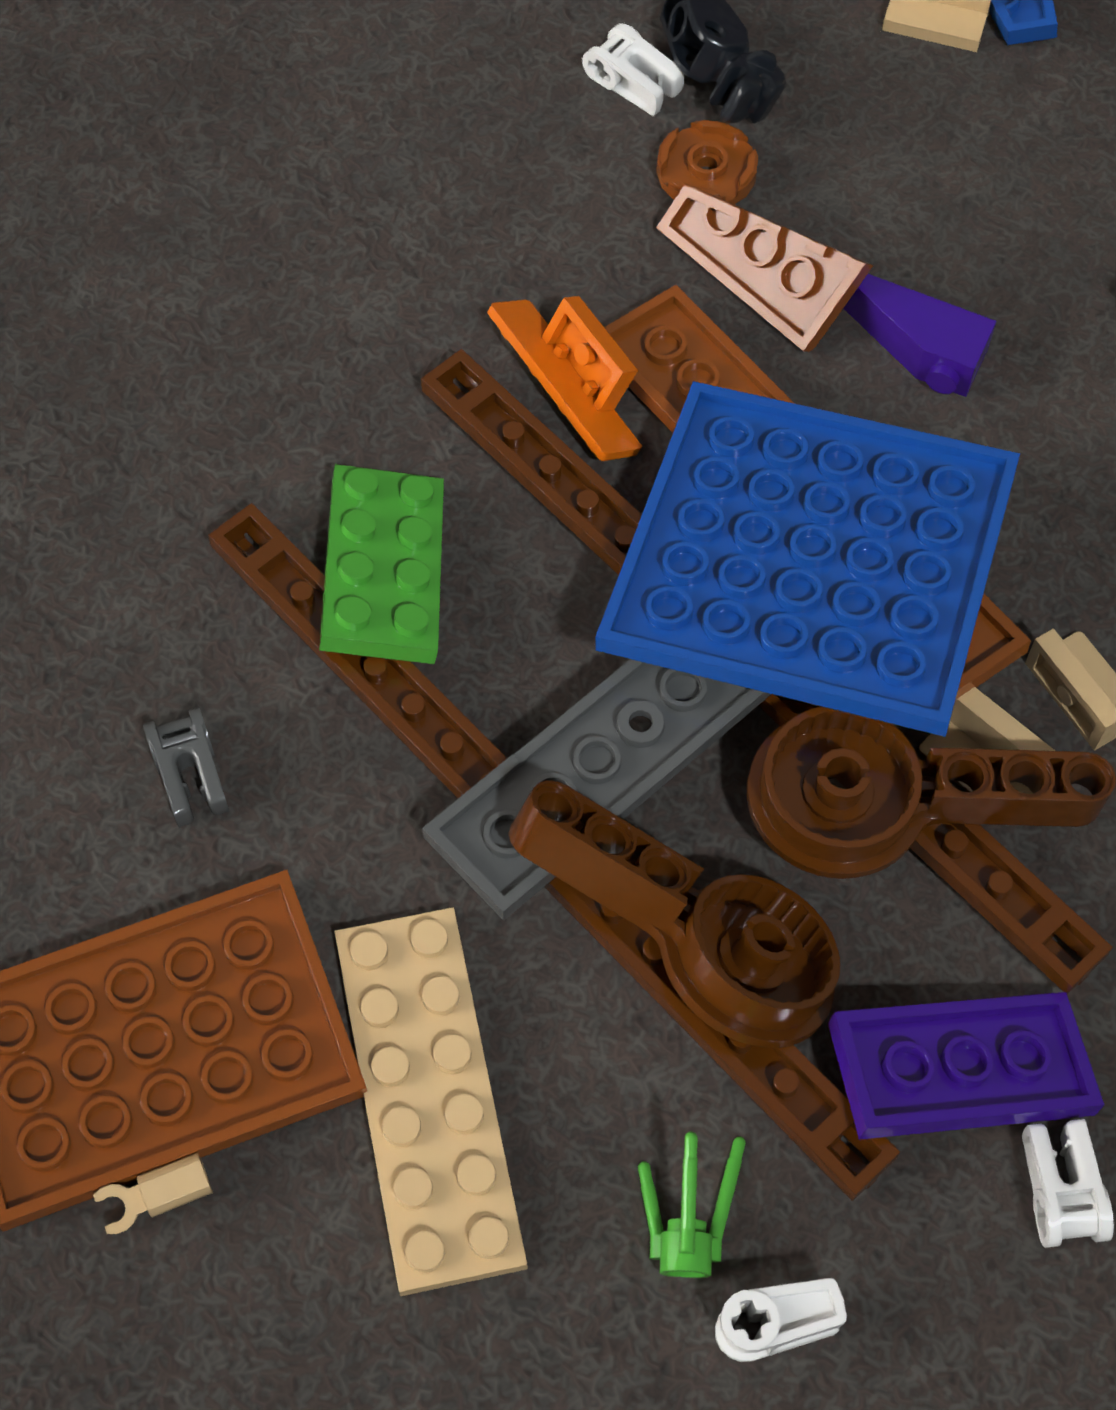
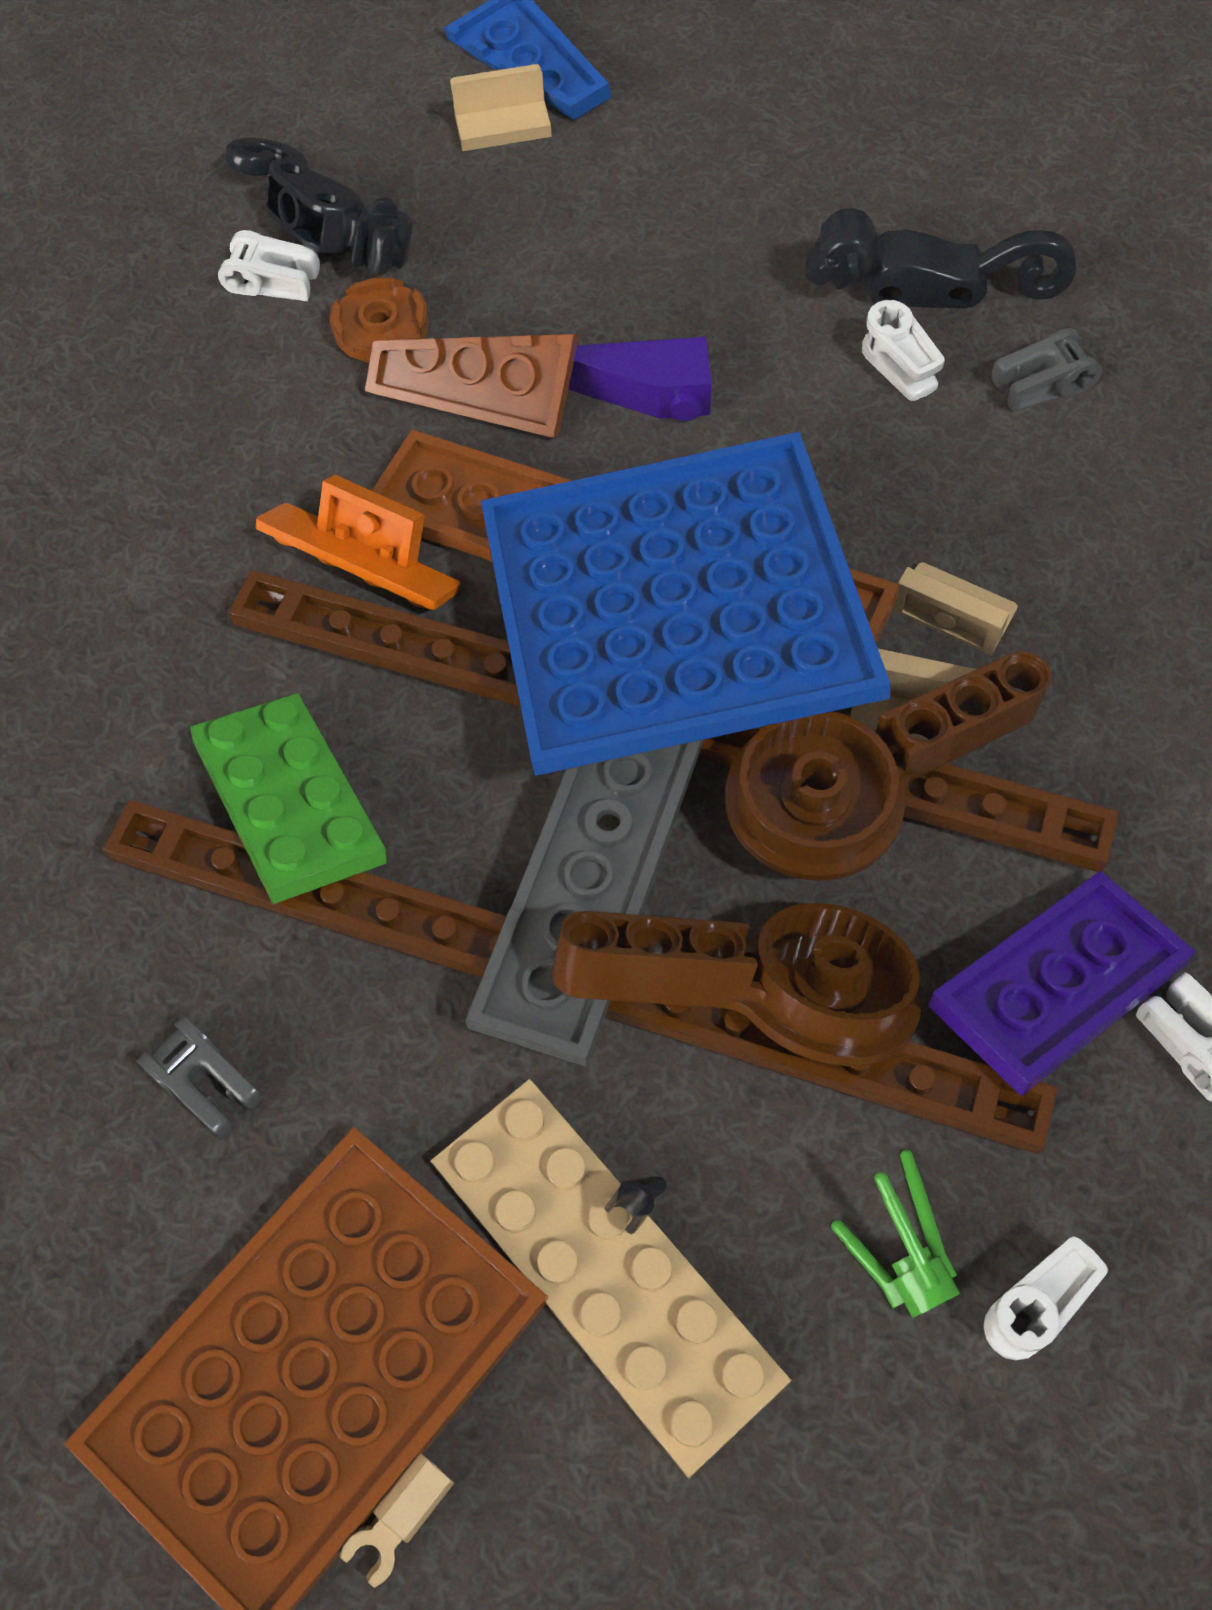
camera: 25 degrees left, 0 degrees up
(482, 1050) = (637, 1200): none -> black hand

